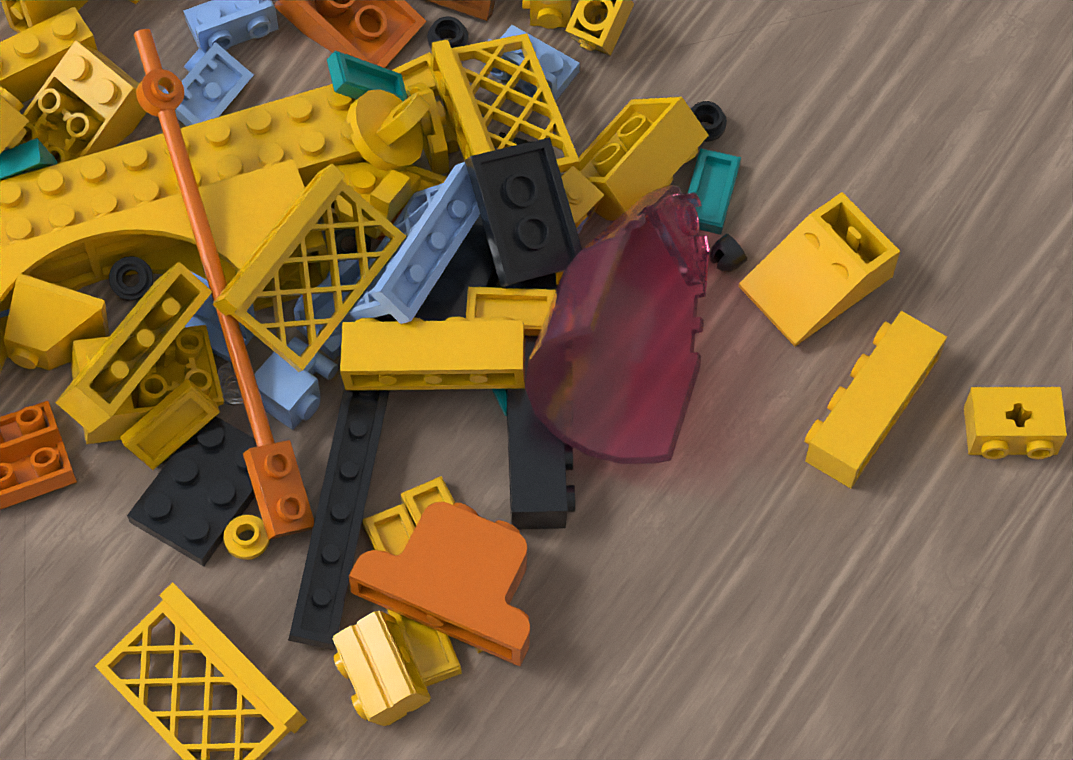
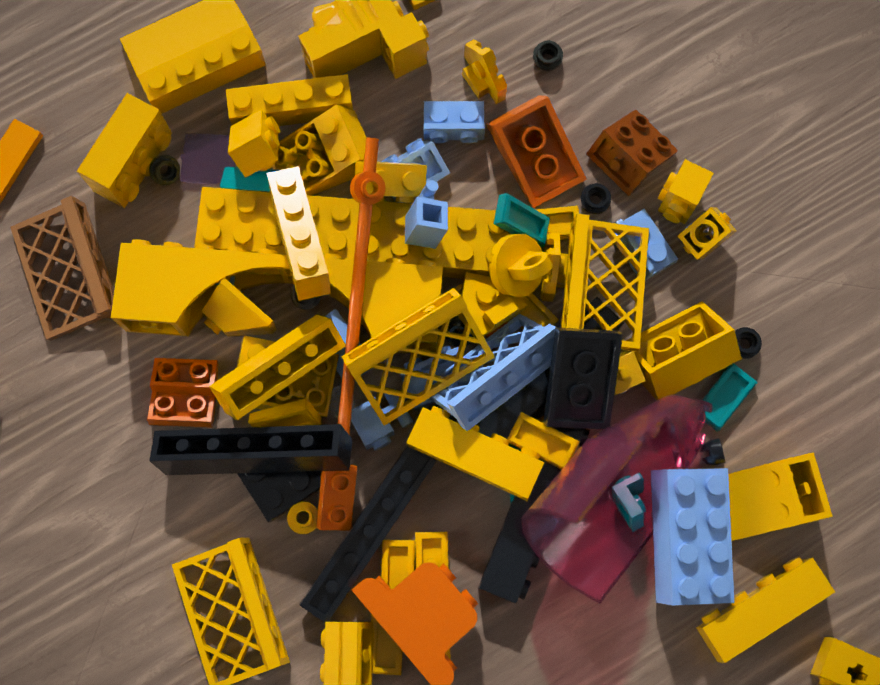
camera: 25 degrees right, 15 degrees up
(95, 185) = (299, 234): none -> yellow brick
(141, 467) = (252, 450): none -> black brick
(205, 95) = (401, 179): none -> yellow brick
(249, 112) = (426, 218): none -> light blue brick
(651, 342) = (626, 499): none -> teal bracket
(745, 346) = (692, 536): none -> light blue brick

